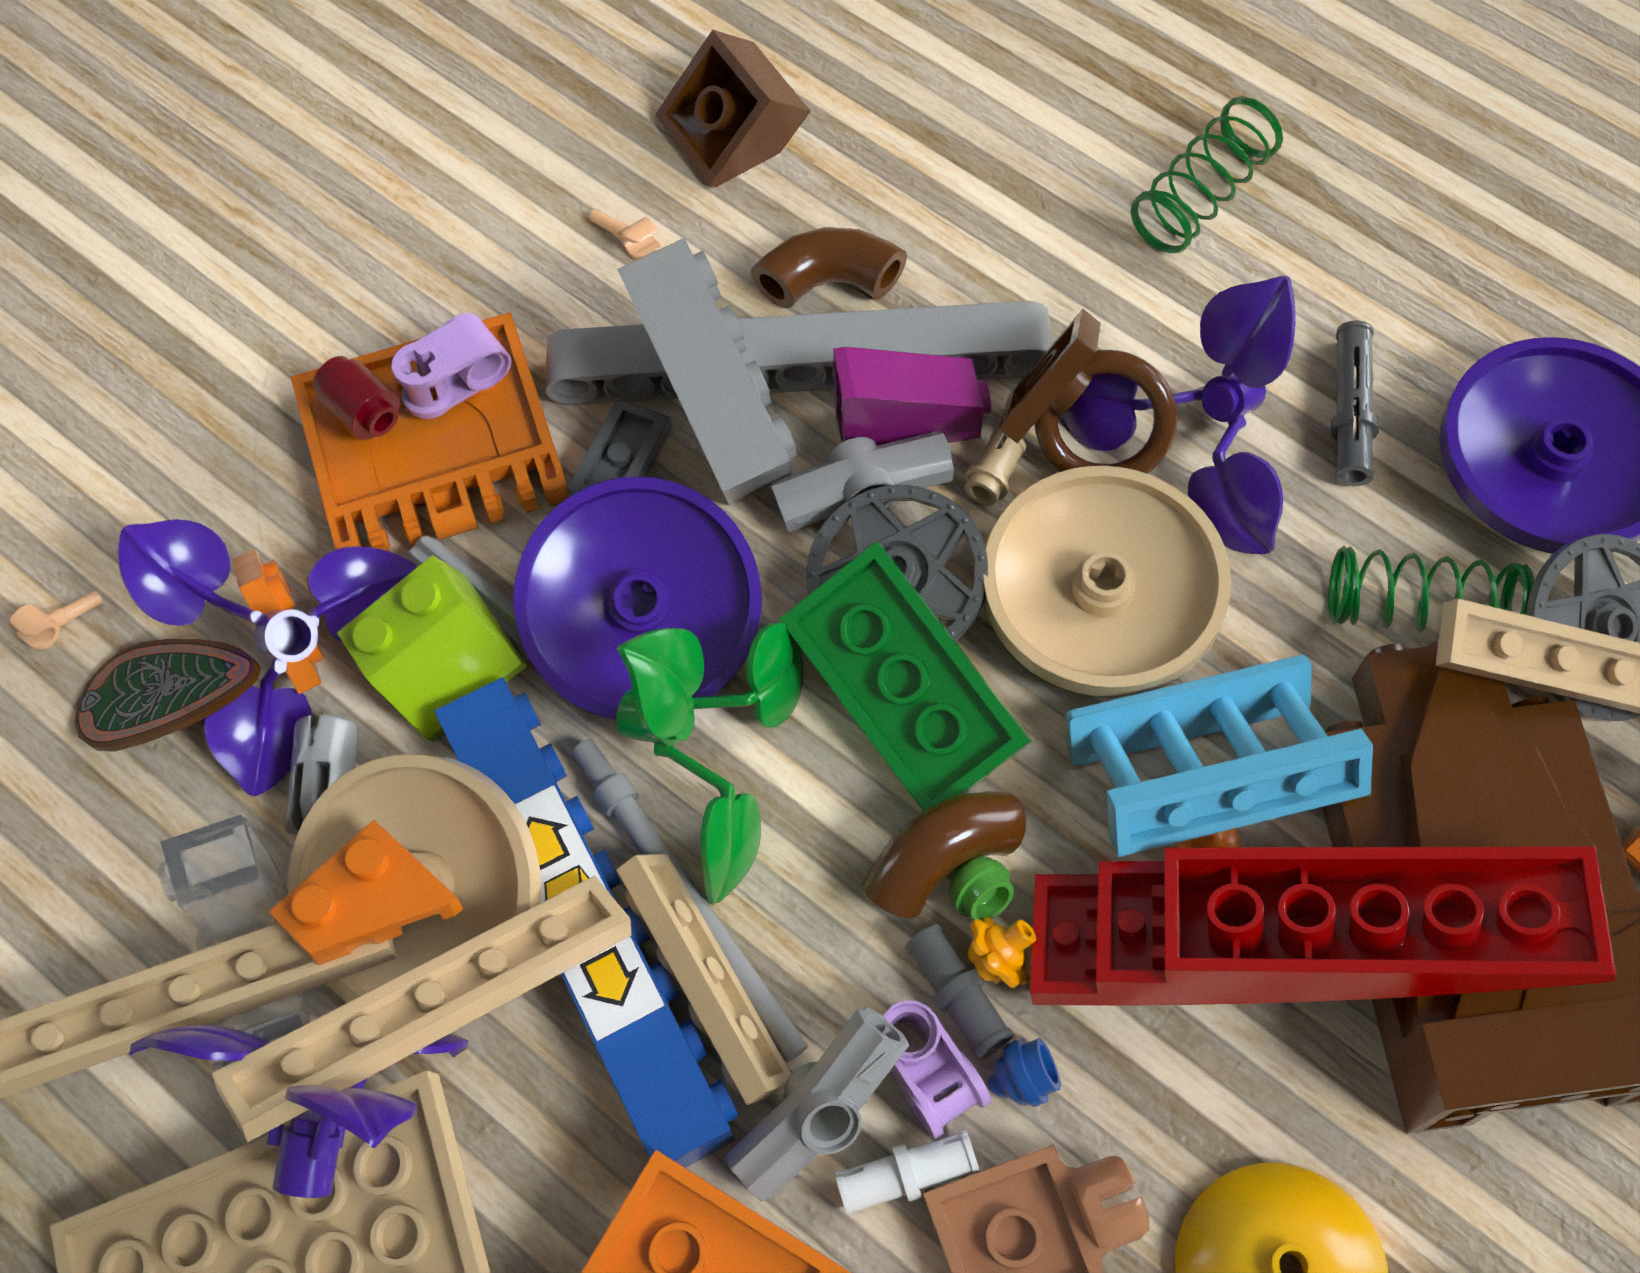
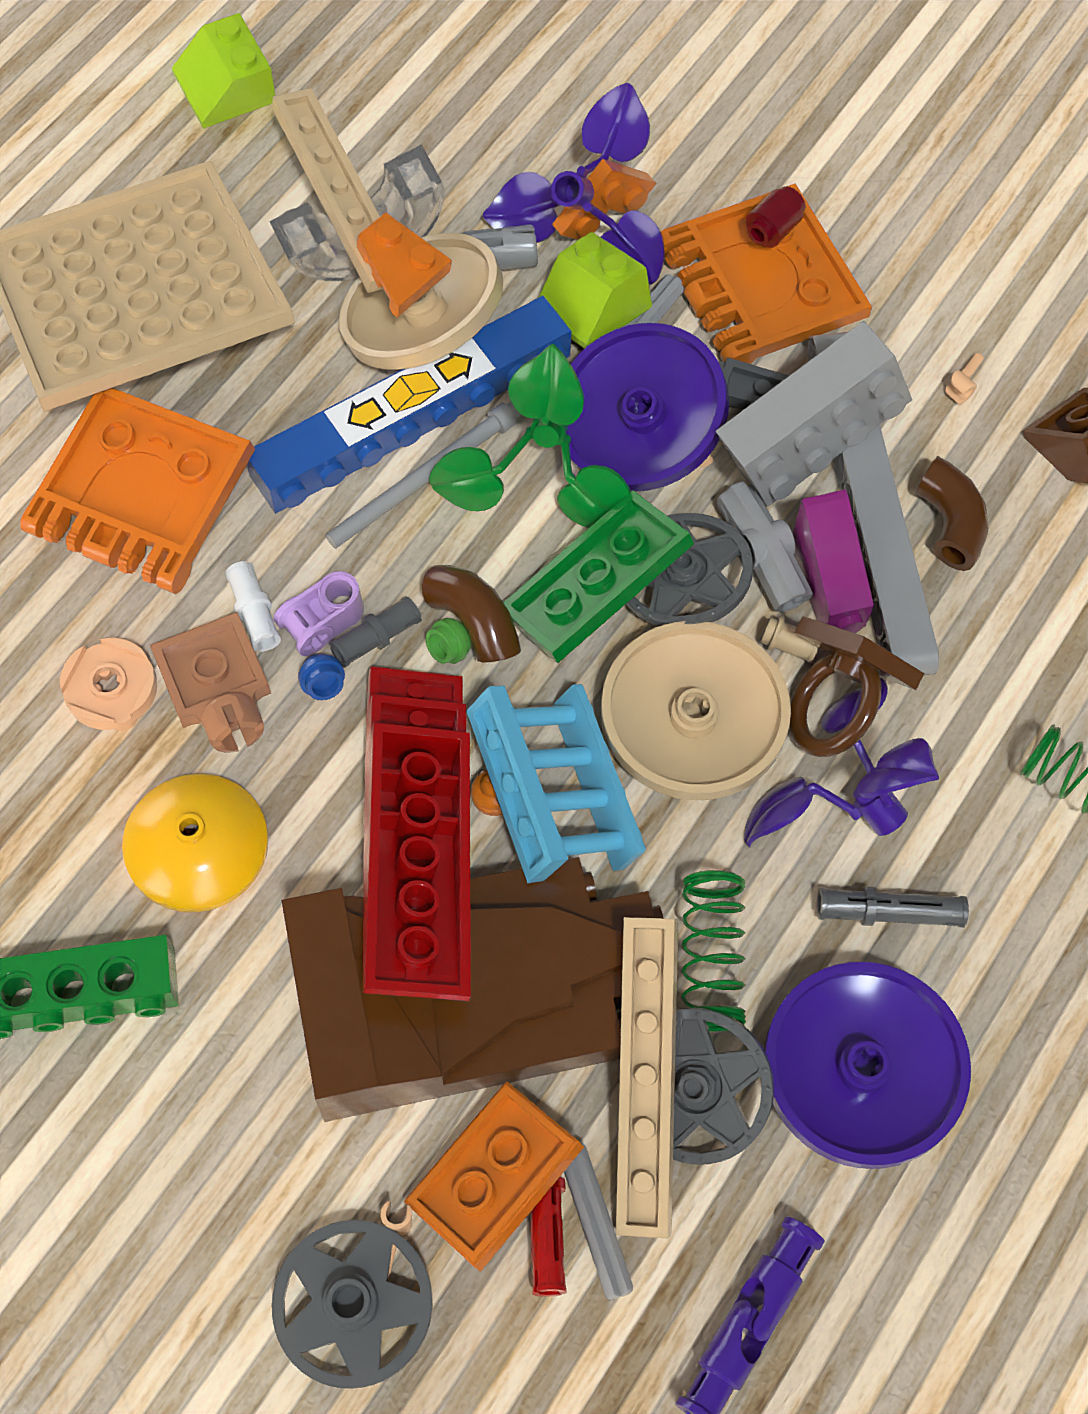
camera: 80 degrees right, 0 degrees up
(42, 630) = (592, 83): light nougat hand -> none
(160, 690) = (545, 147): shield -> none
(313, 1139) = (242, 251): dark purple plant -> none
(422, 1005) = (329, 299): tan plate -> none
(454, 361) = (813, 271): lavender piece -> none
(713, 990) = (372, 473): tan plate -> none
(819, 1105) = (288, 543): light grey piece -> none
(1000, 951) = (403, 650): light orange plant -> none

